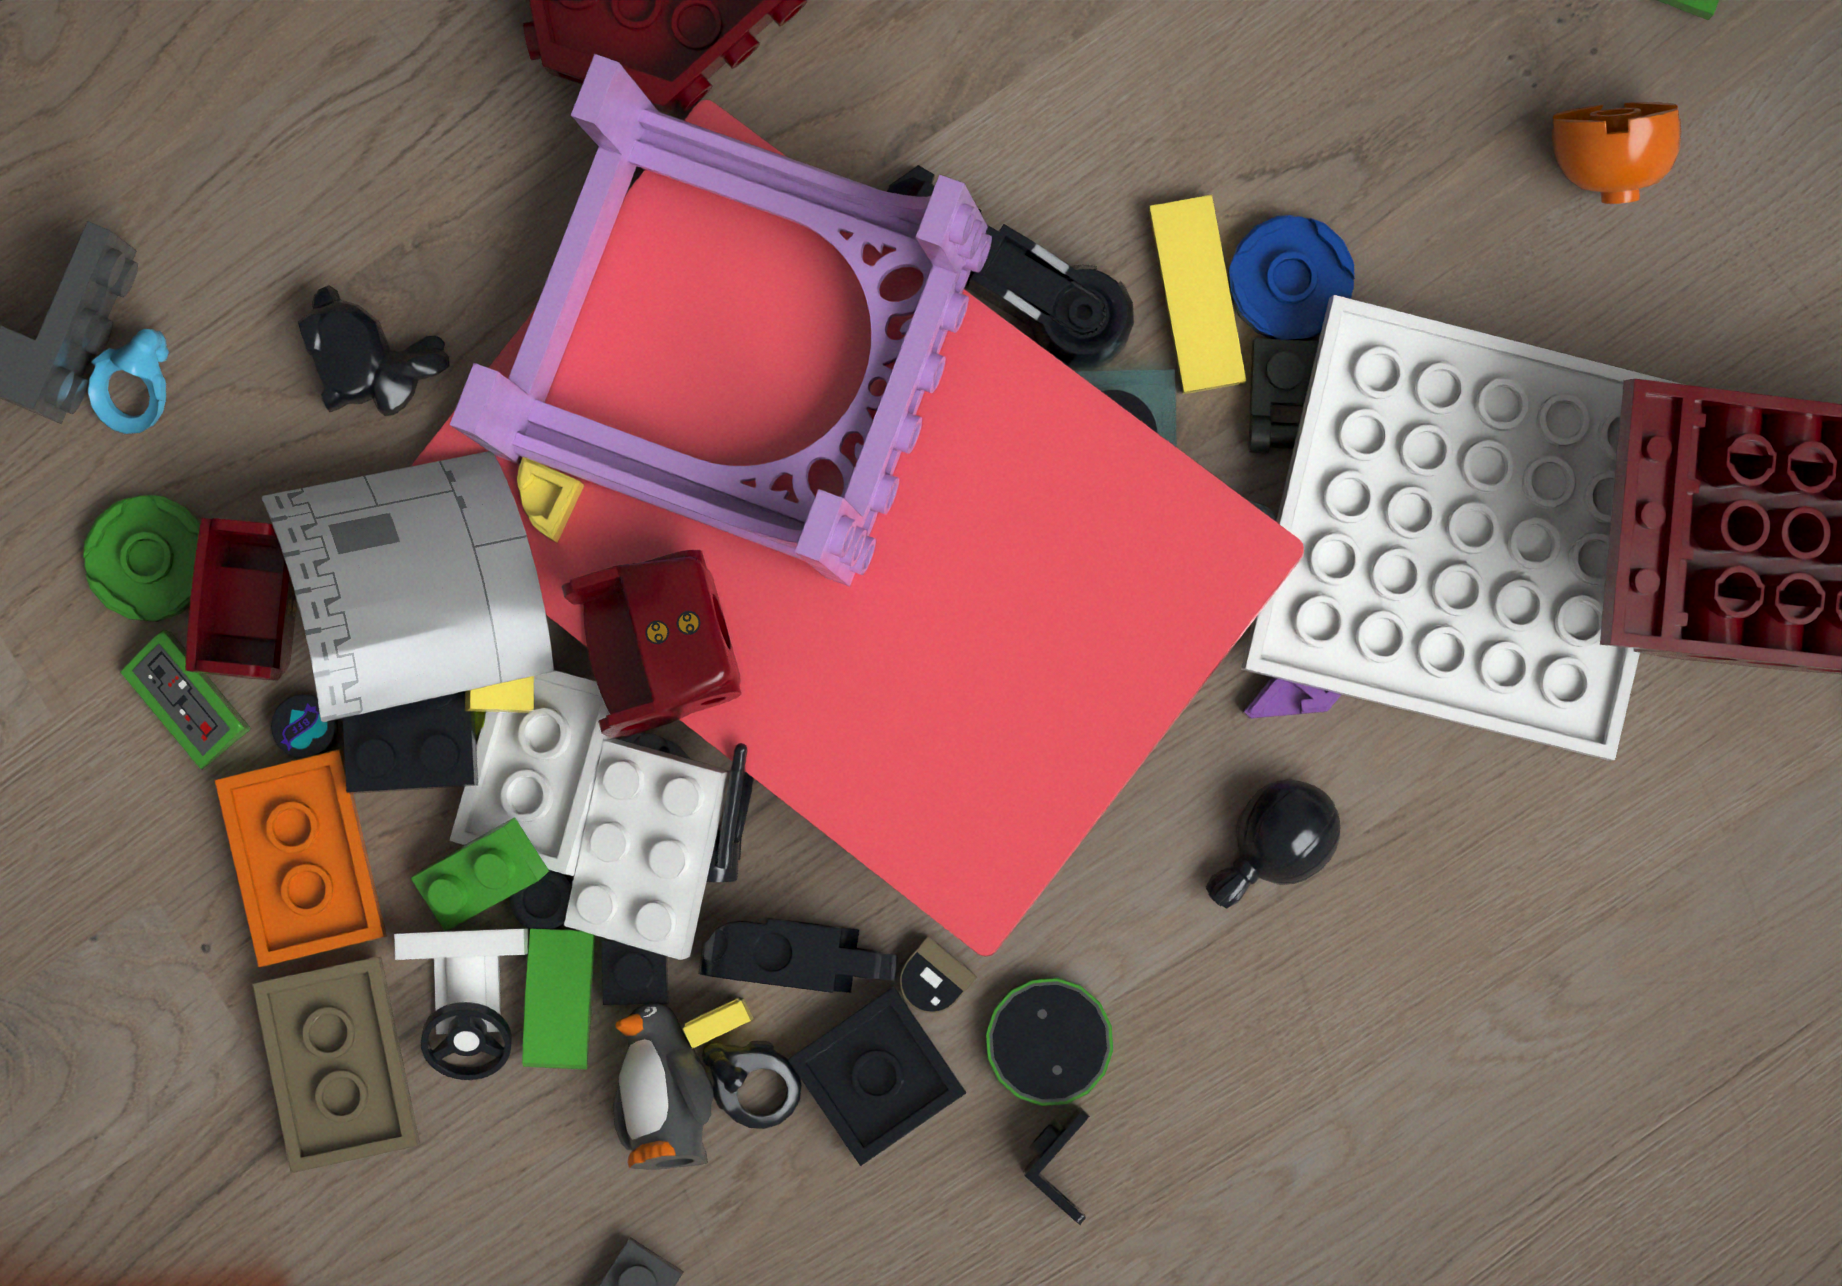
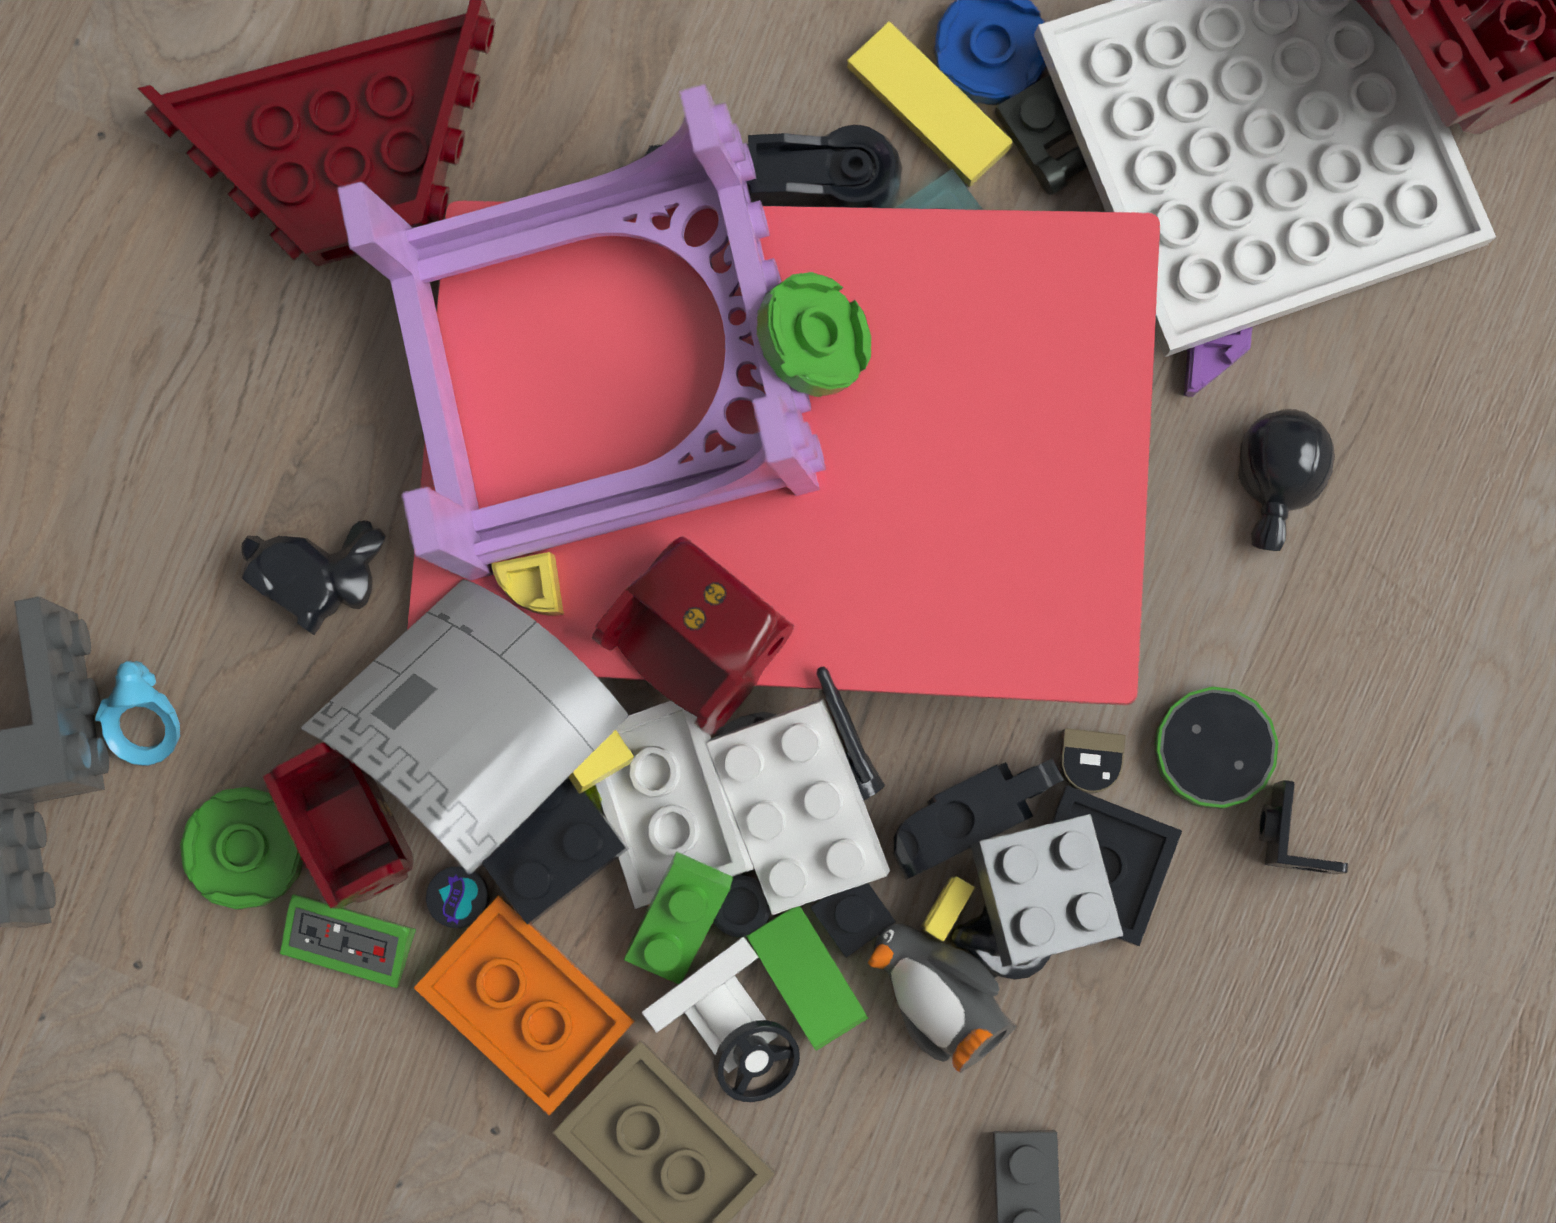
camera: 30 degrees left, 5 degrees down
(809, 1065) = (1046, 890): none -> plate
(930, 450) = (813, 334): none -> bright green tile

